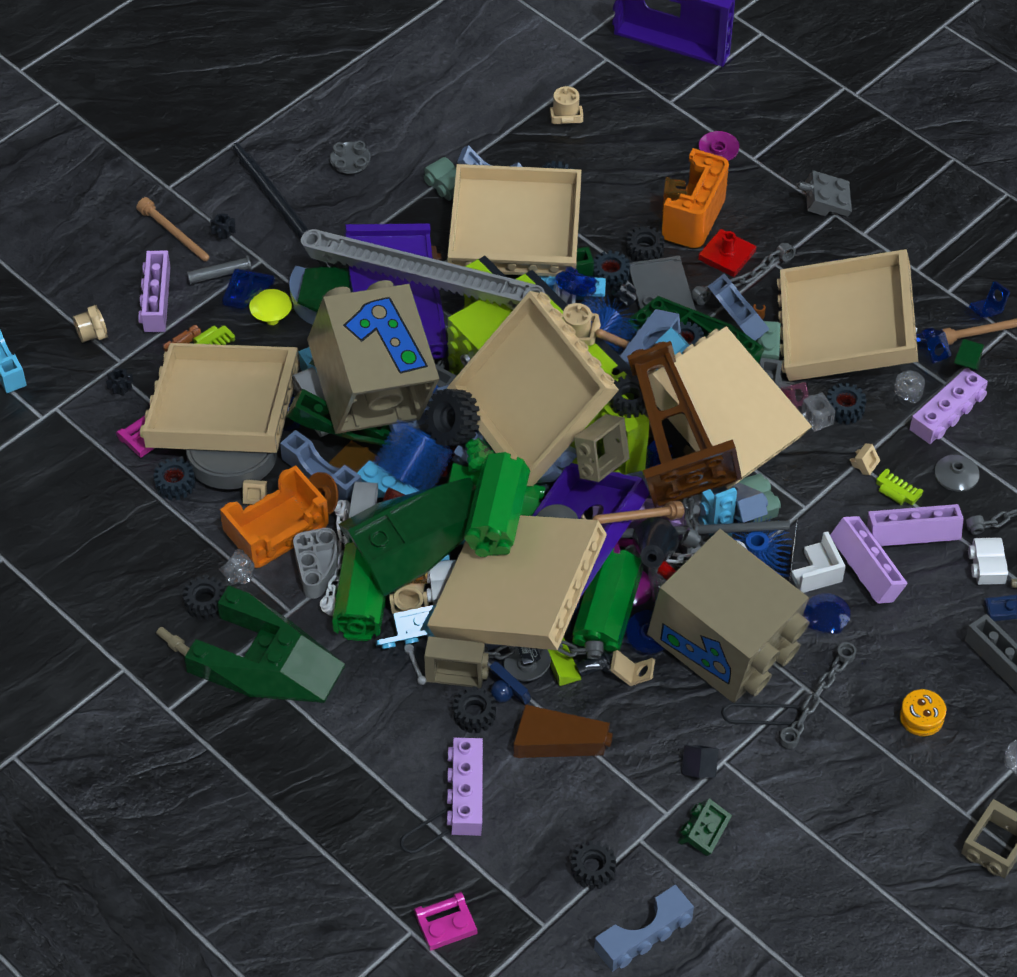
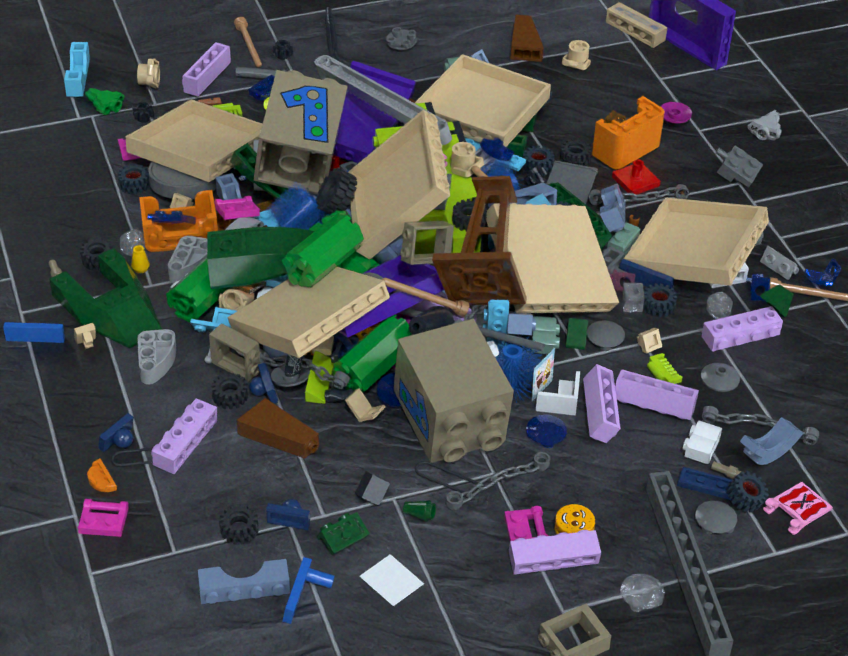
camera: 25 degrees right, 10 degrees down
(60, 382) = (105, 100): none -> green rock
(209, 730) = (34, 332): none -> blue tile
(261, 586) = (139, 260): none -> yellow cone
(266, 517) = (174, 217): none -> clear blue wing
(270, 710) = (85, 335): none -> tan tile
(344, 482) = (236, 208): none -> dark pink plate
(368, 694) = (155, 354): none -> light grey beam
(395, 817) = (118, 433): none -> dark blue tile
(407, 875) = (100, 478): none -> orange tile
(494, 105) = (526, 40): none -> reddish brown slope
(603, 36) = (636, 24): none -> tan brick
(637, 830) = (288, 514): none -> dark blue tile
(699, 896) = (305, 574): none -> blue piece
(763, 764) = (420, 509): none -> dark green cone
(782, 856) = (391, 580): none -> white sticker
(786, 480) = (577, 333): none -> dark green slope
(815, 469) = (605, 334): none -> dark grey dish
(817, 378) = (645, 275): none -> dark blue tile
(824, 127) = (766, 126): none -> light grey rock
(871, 741) = (518, 524): none -> dark pink plate
(925, 754) = (554, 551): none -> lavender brick
(937, 306) = (779, 263): none -> light grey hinge

